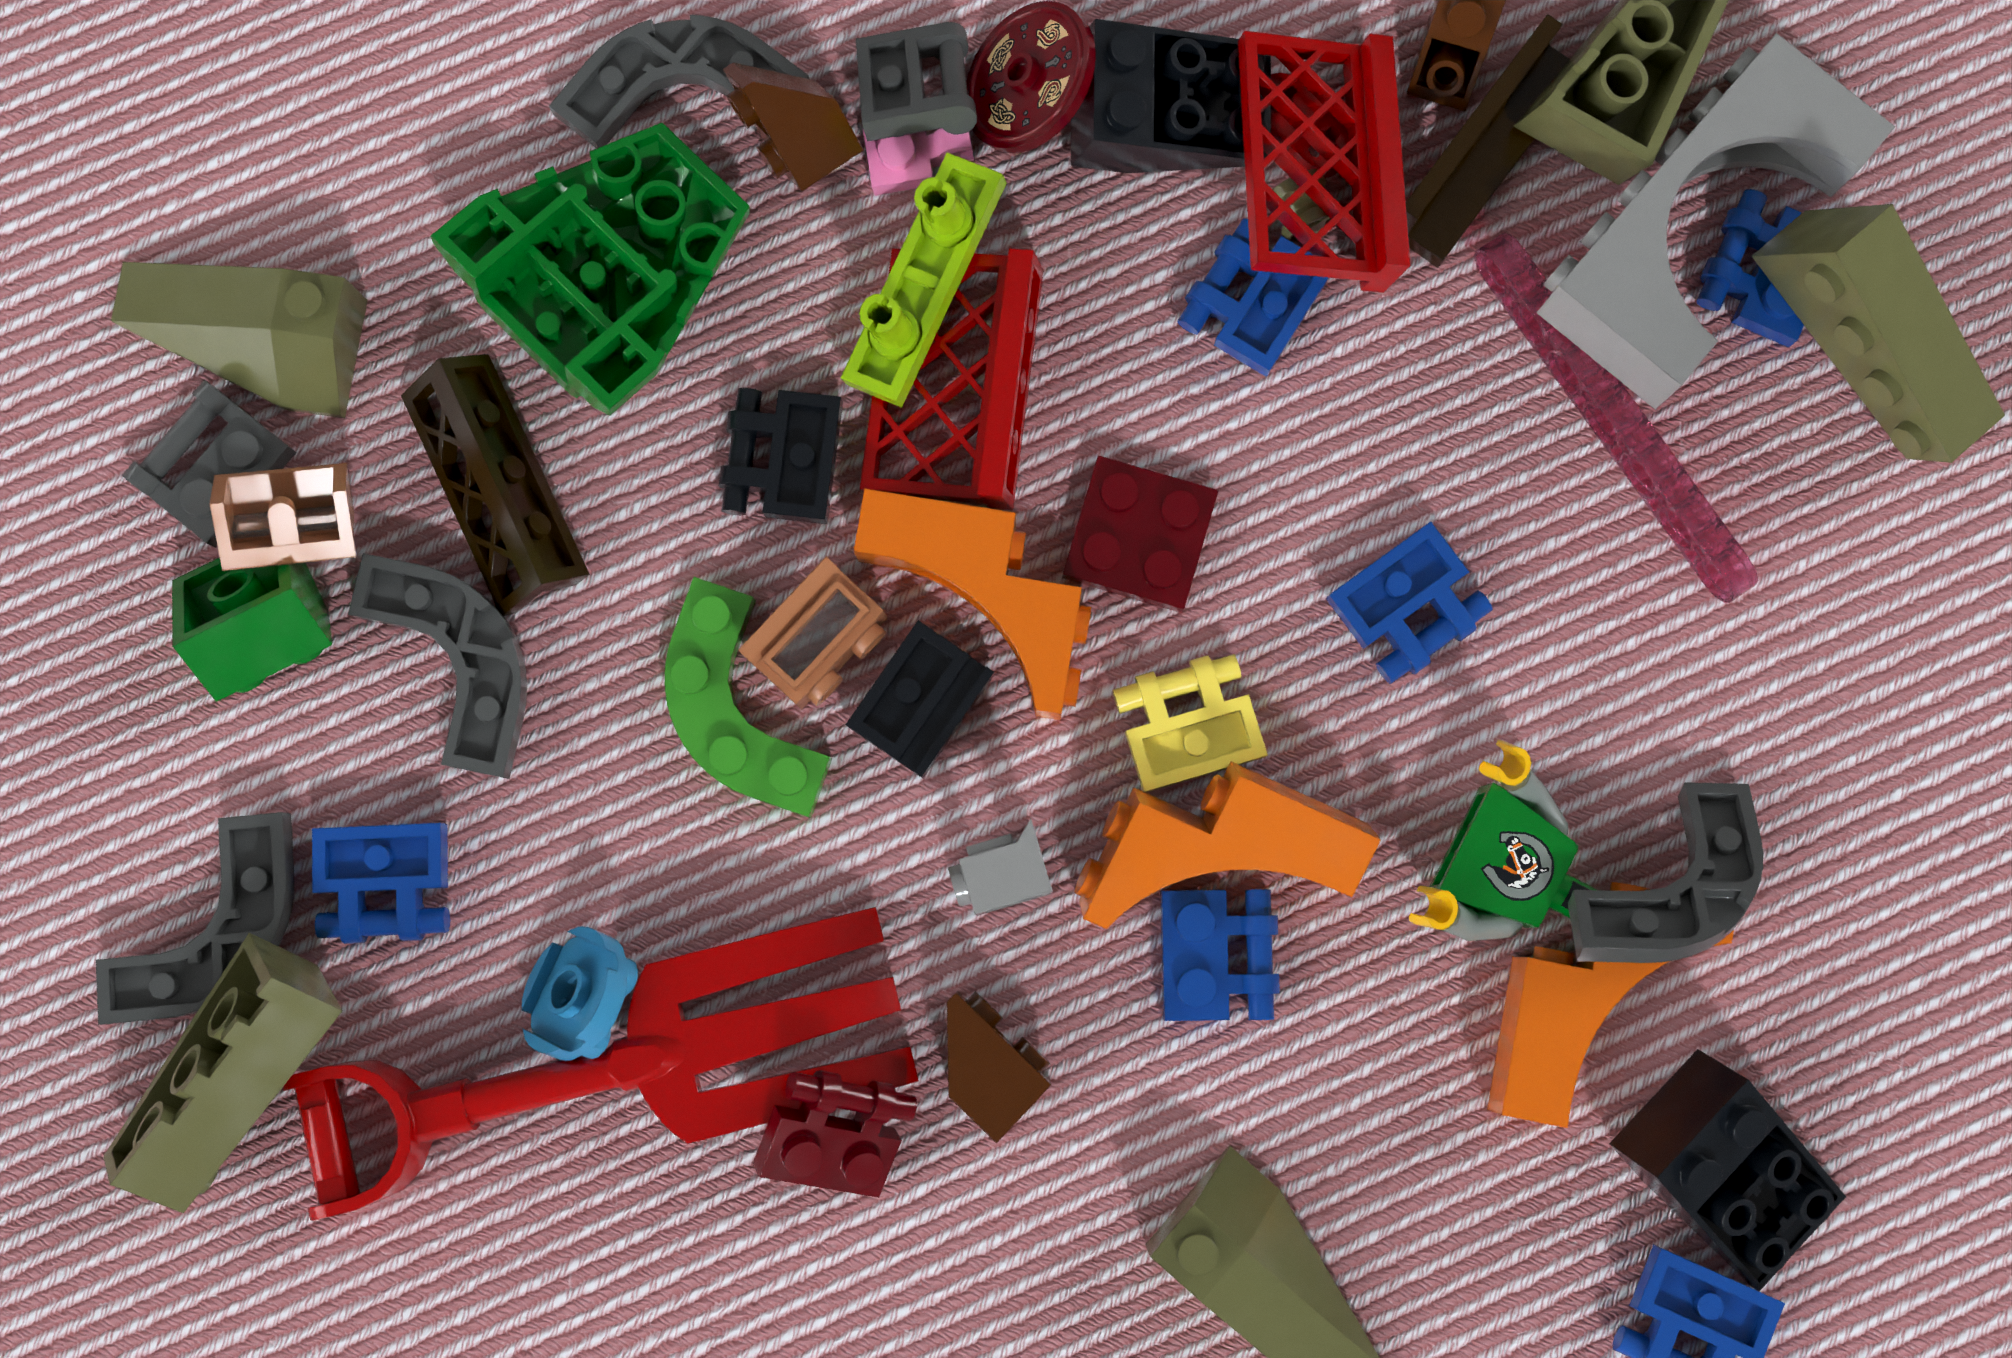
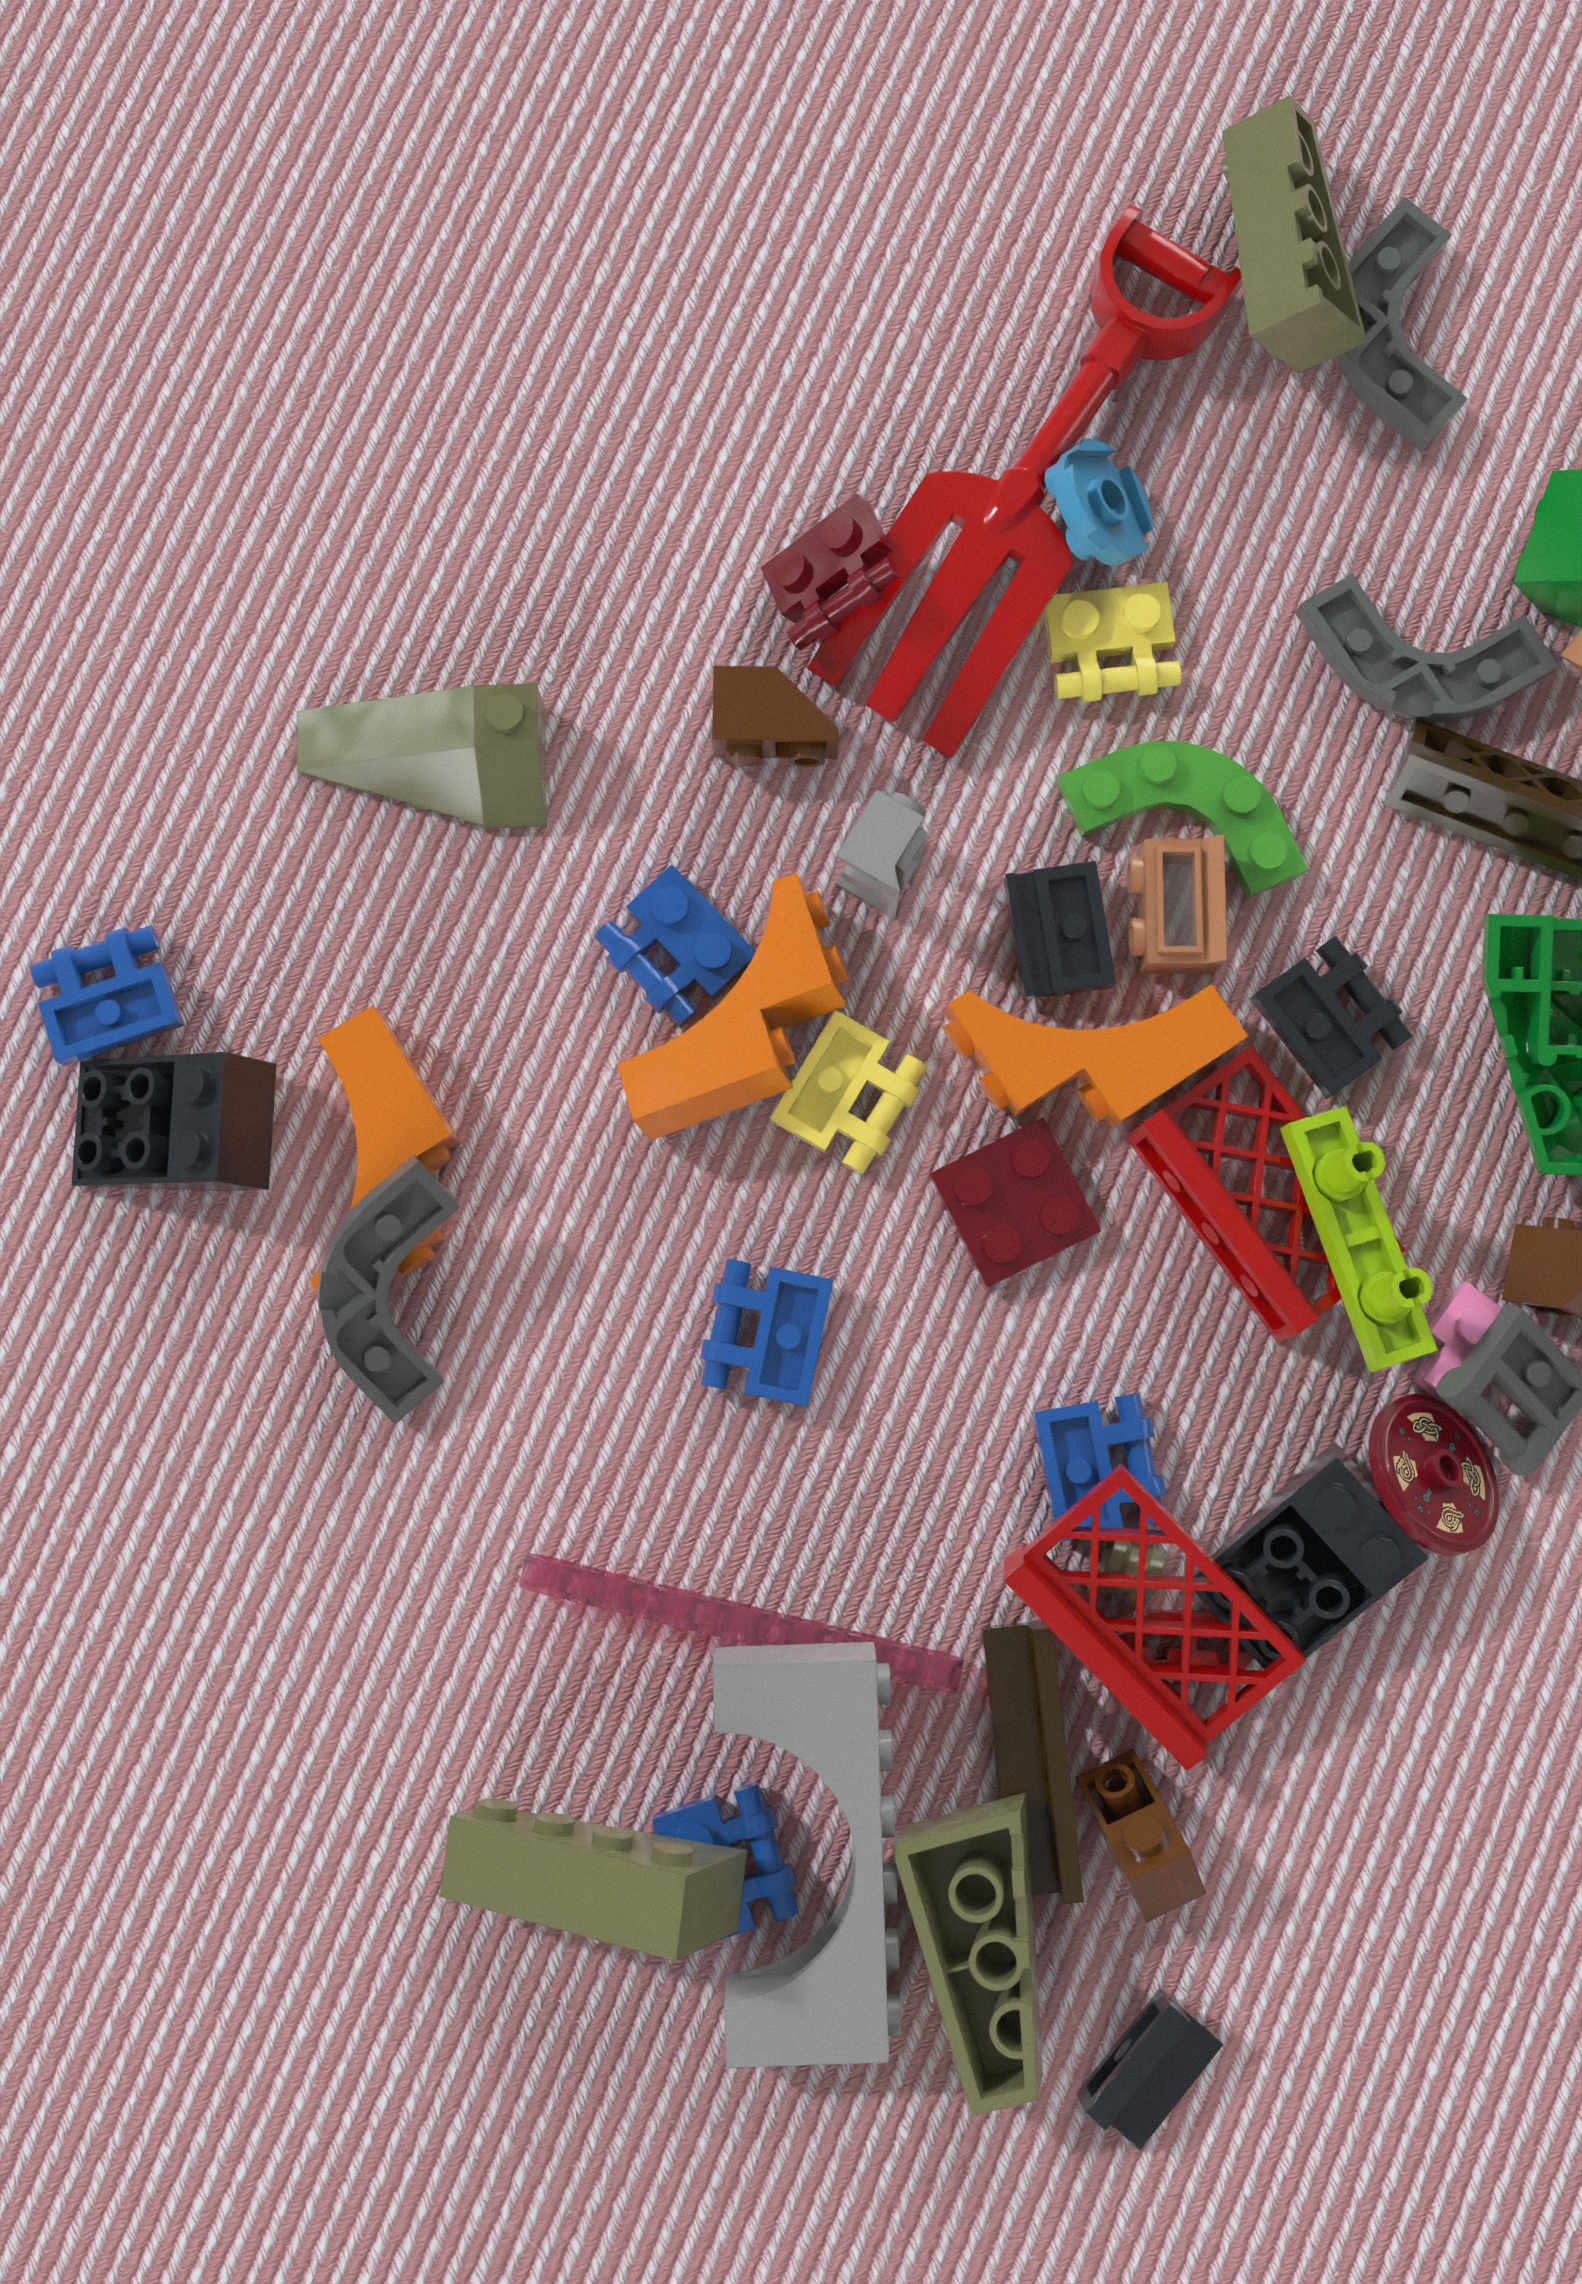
camera: 135 degrees right, 0 degrees up
(380, 860) = (1327, 476): blue plate -> none
(653, 899) = (1112, 624): none -> light yellow plate
(1504, 859) = (527, 1195): torso -> none

